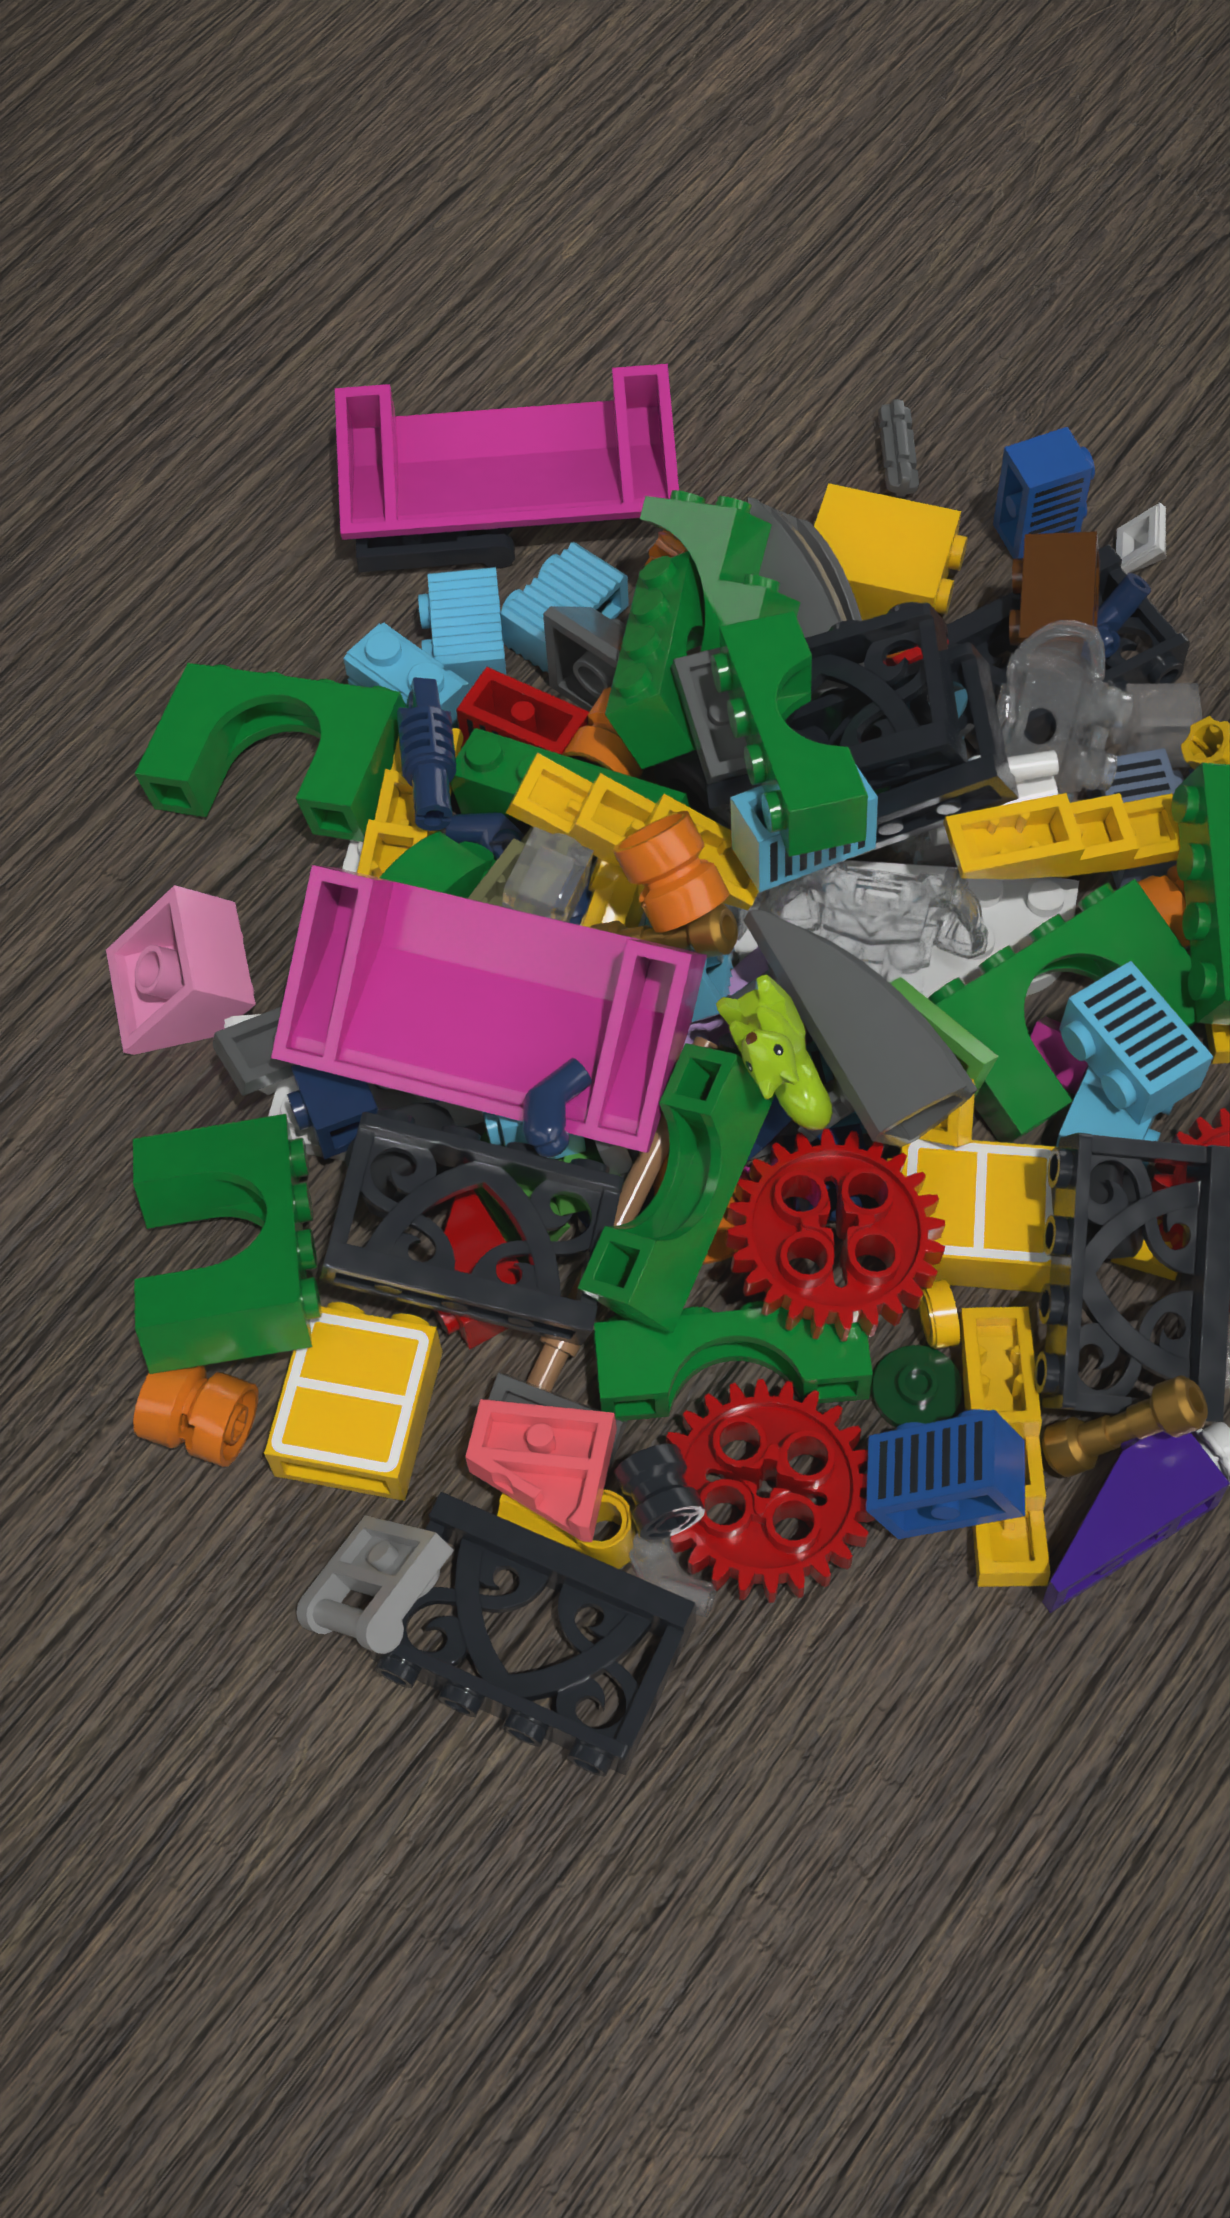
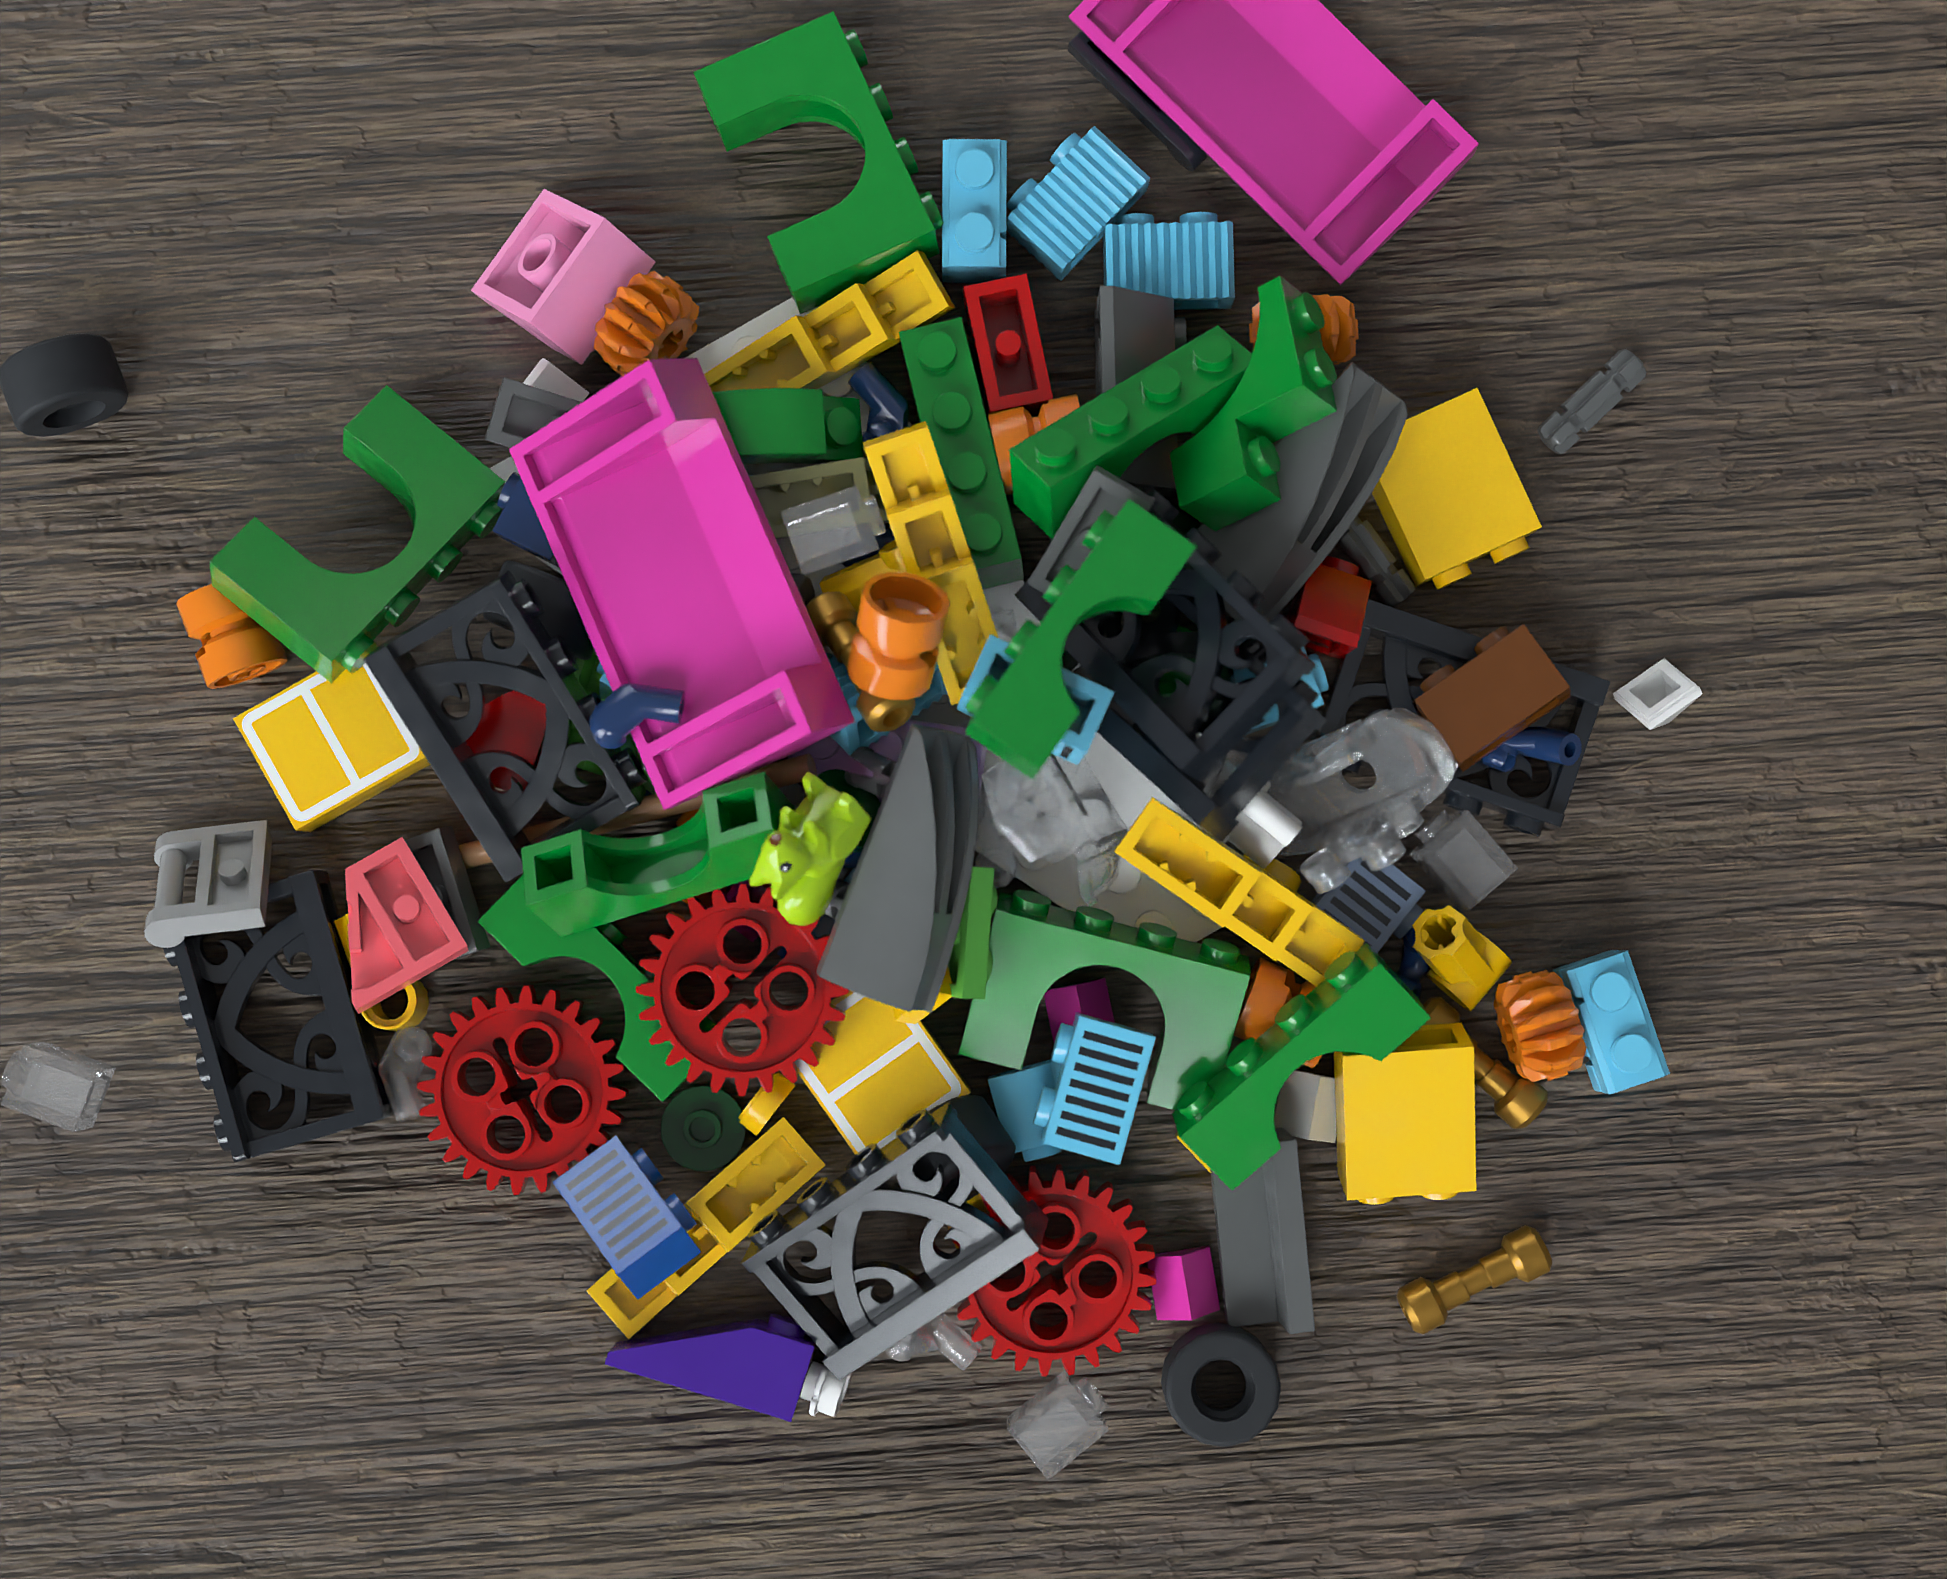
camera: 40 degrees right, 25 degrees up
(266, 934) = (645, 322): none -> orange gear
(418, 1874) = (56, 1085): none -> clear brick
(427, 754) = (889, 311): dark blue hinge -> none
(659, 1492) = (436, 1029): black wheel -> none
(1042, 488) = (1620, 583): blue brick -> none
(1173, 1407) = (801, 1346): pearl gold piece -> none

